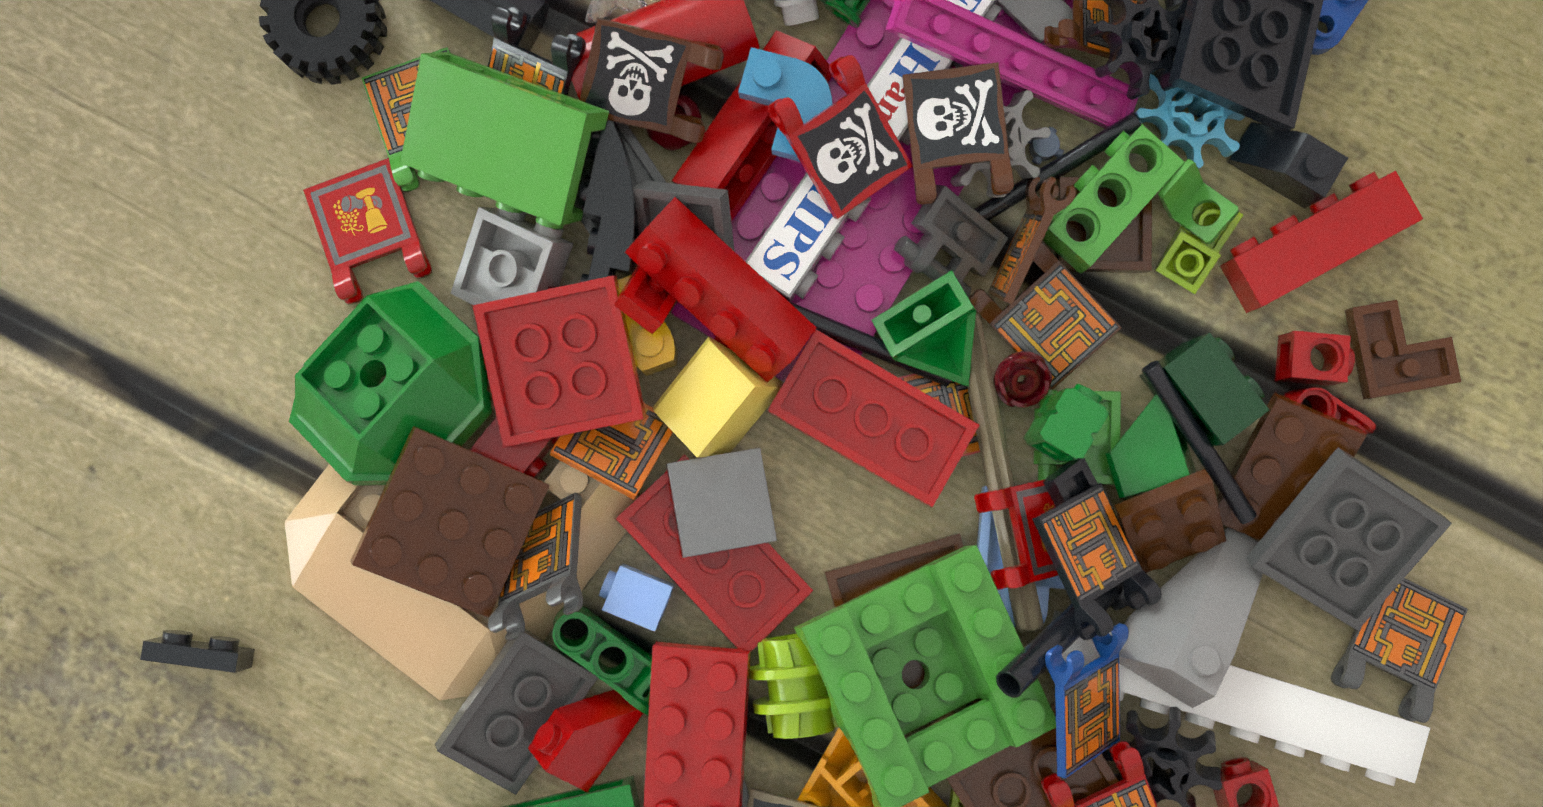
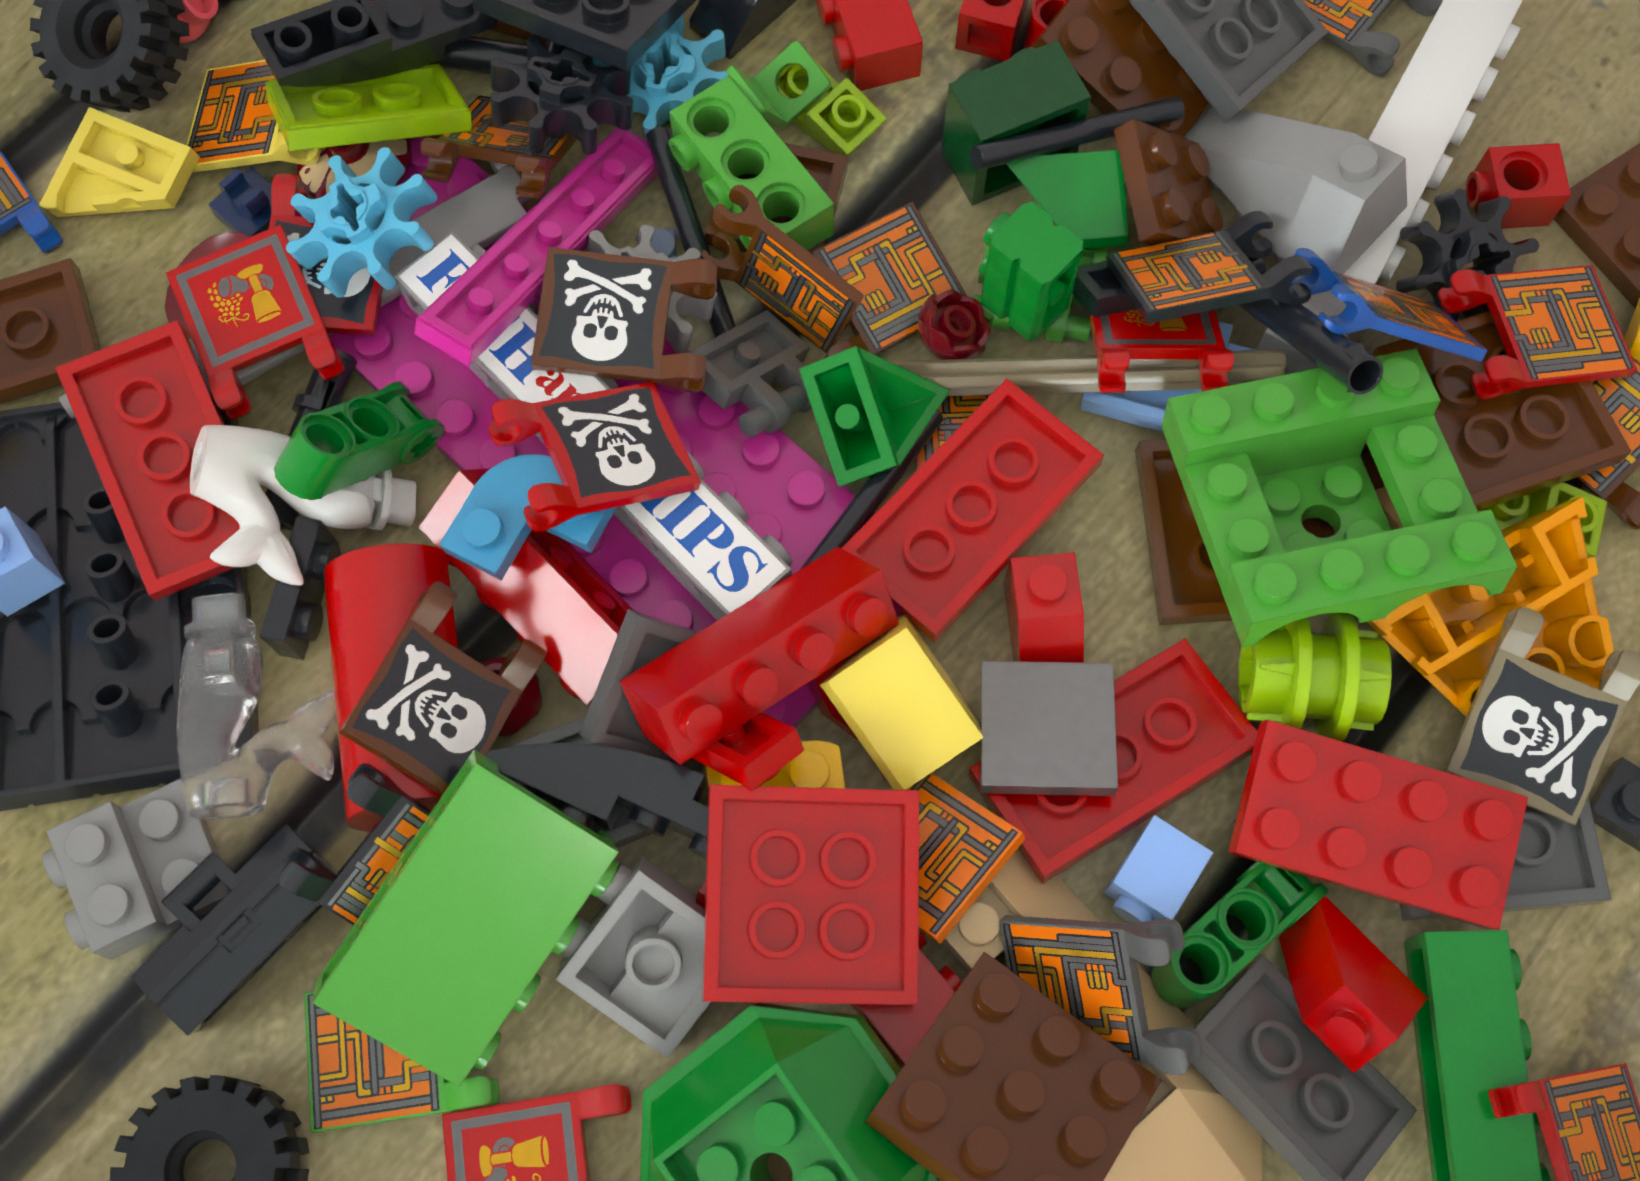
camera: 70 degrees left, 15 degrees down
(807, 488) = (1045, 608): none -> red slope

